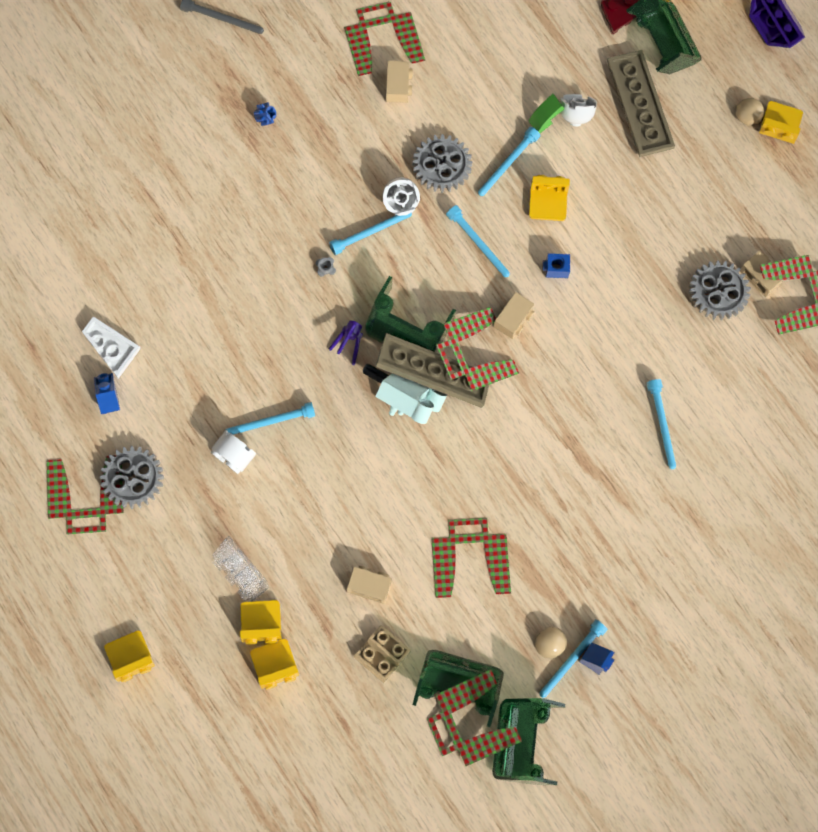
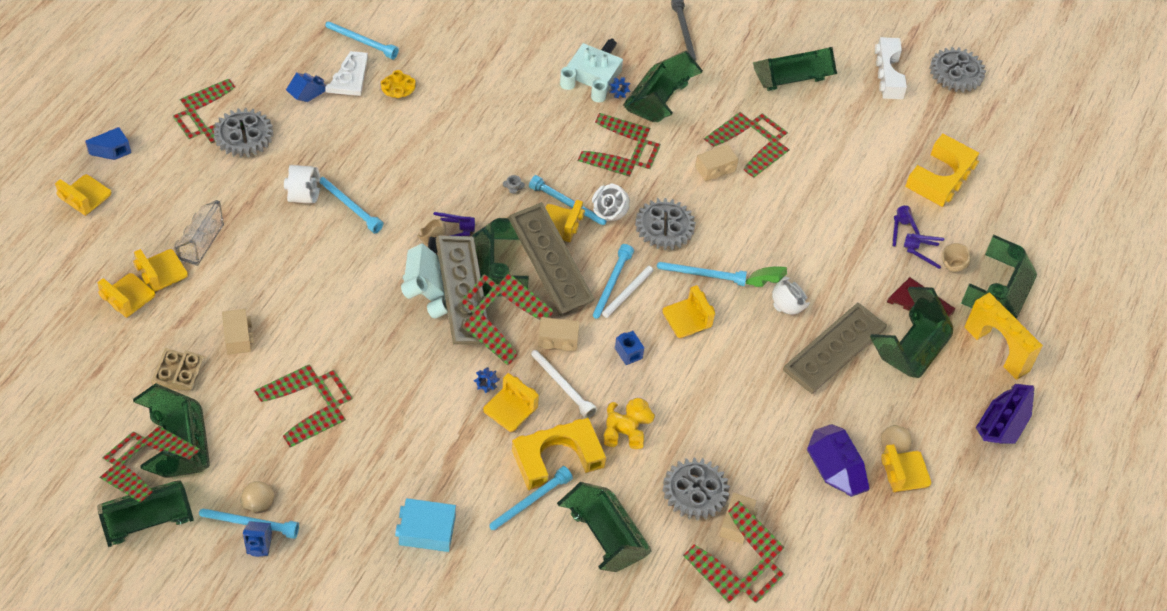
camera: 60 degrees right, 20 degrees down
(80, 608) = (109, 145): none -> blue slope
(98, 295) = (391, 51): none -> medium azure piece
(147, 308) = (398, 84): none -> yellow dish
(227, 123) = (593, 68): none -> light aqua piece
(279, 83) = (658, 85): none -> clear green windscreen
(345, 166) = (616, 163): none -> piece
(347, 364) = (432, 228): none -> tan hair
(392, 248) = (565, 219): none -> yellow bracket
(438, 279) = (551, 258): none -> dark tan plate
(495, 235) = (635, 283): none -> white bar
(532, 398) = (481, 380): none -> blue gear
(565, 391) = (512, 404): none -> yellow bracket
(598, 333) = (586, 408): none -> white piece
(620, 401) = (575, 435): none -> yellow arch
(628, 295) = (636, 413): none -> yellow animal
(649, 517) = (426, 525): none -> medium azure brick
(727, 374) = (608, 523): none -> clear green windscreen
(744, 166) = (838, 460): none -> dark purple wedge

